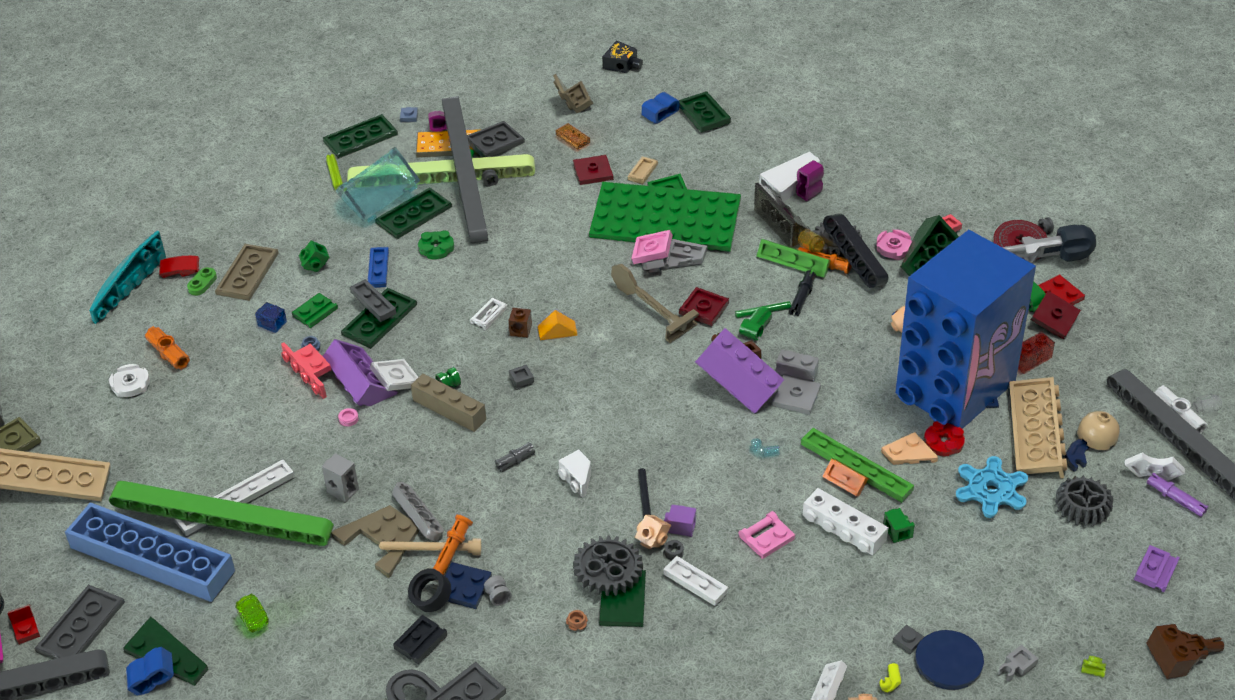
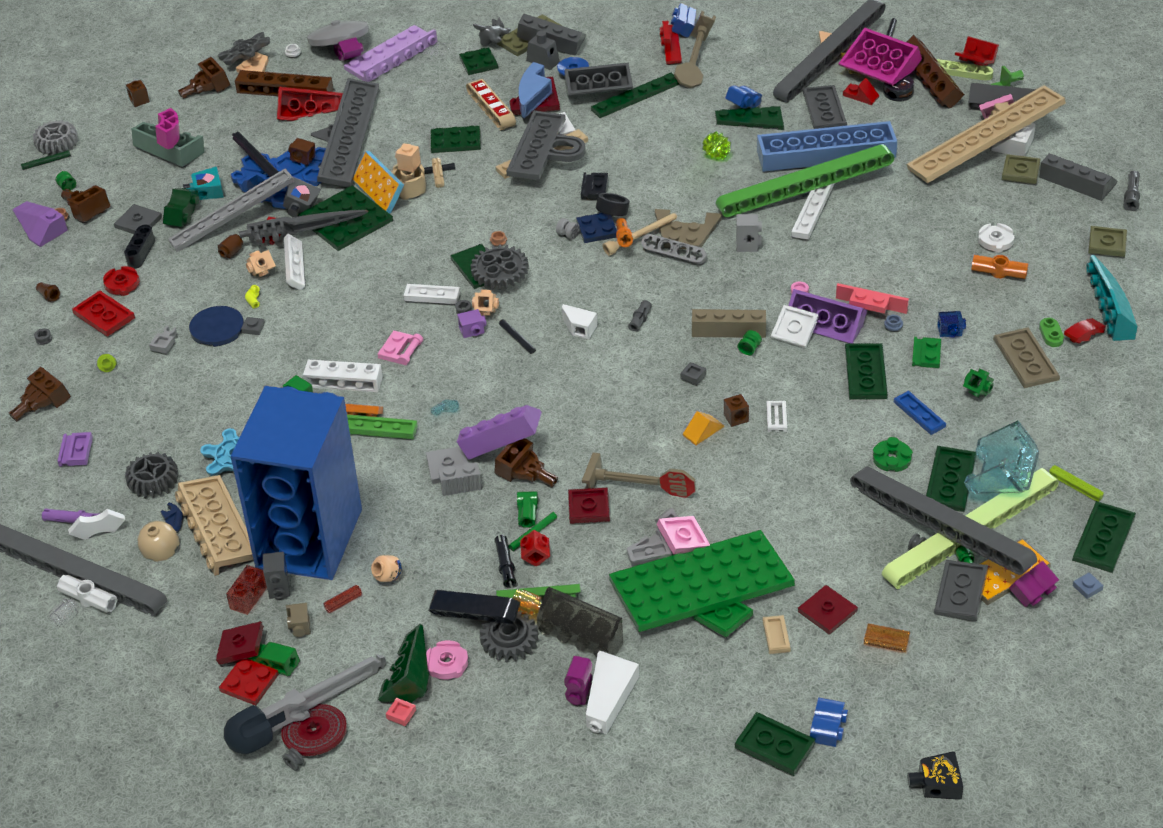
camera: 150 degrees right, 0 degrees up
(51, 332) = (1107, 241): none -> olive plate
(373, 300) = (880, 368): dark grey plate -> none
(576, 96) = (939, 680): dark tan bracket -> none
(774, 284) = (535, 548): none -> red brick

